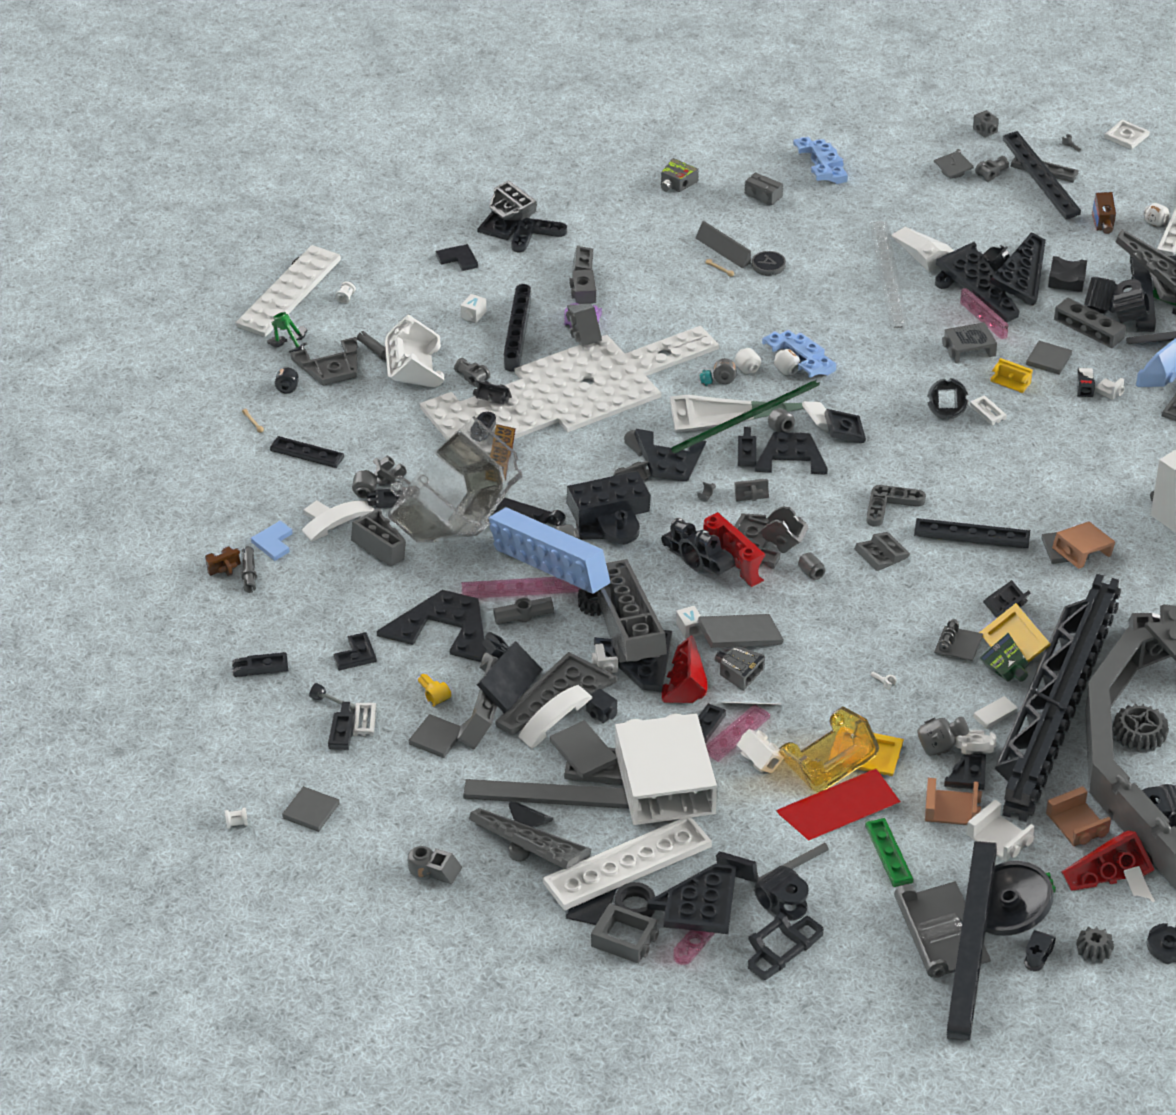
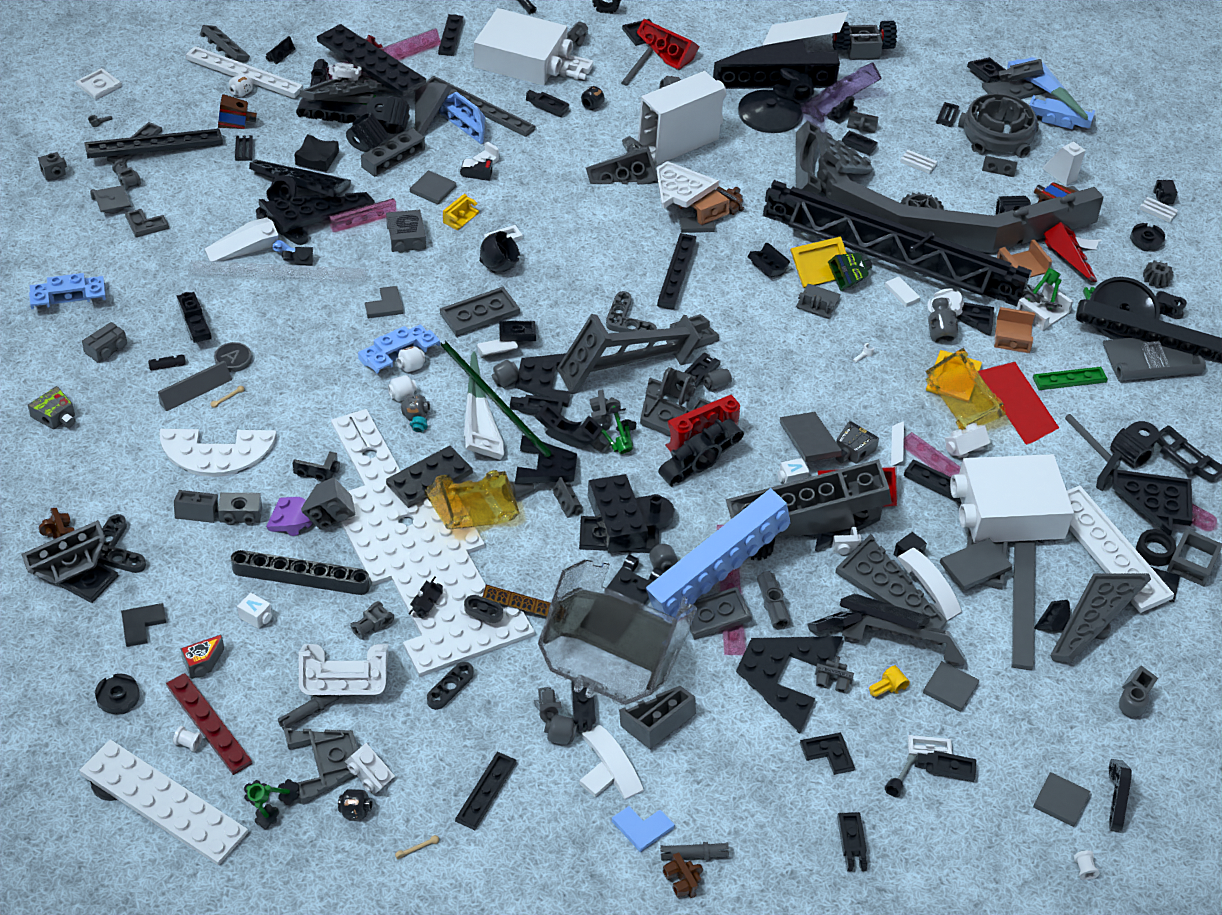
camera: 90 degrees left, 5 degrees up
(315, 827) = (1121, 776): none -> black beam
(317, 381) = (369, 769): none -> white bracket
(363, 303) = (209, 723): none -> dark red plate
(386, 254) = (117, 704): none -> black plate
(400, 418) = (450, 677): none -> black beam
(423, 288) = (202, 656): none -> slope
(438, 652) = (834, 671): none -> dark grey hips
(504, 574) = (719, 613): none -> dark grey tile
(548, 196) = (55, 524): none -> reddish brown hips
(602, 404) = (473, 502): none -> clear yellow windscreen
(636, 384) = (413, 481): none -> black plate
(637, 328) = (317, 471): none -> black bracket
(643, 272) = (216, 459): none -> white plate
(706, 503) = (623, 443): none -> green plant
(718, 462) = (566, 431): none -> black arch
(752, 228) = (166, 362): none -> black axle
(804, 453) = (586, 351): none -> dark grey piece
(811, 232) = (193, 317): none -> black slope
(827, 555) = (700, 367): none -> black plate
(862, 346) = (388, 306): none -> dark grey tile
(869, 401) = (479, 311): none -> dark grey plate
(913, 283) = (302, 255): none -> black plate
(922, 267) = (280, 246): none -> light blue arm
(931, 190) = (142, 226): none -> dark grey tile
(1026, 818) = (1051, 277): none -> plant
(1063, 232) = (244, 140): none -> black tile
(1096, 518) = (682, 185): none -> white wing
(1103, 565) = (734, 197): none -> reddish brown hips
(1126, 485) = (624, 168): none -> dark grey wedge

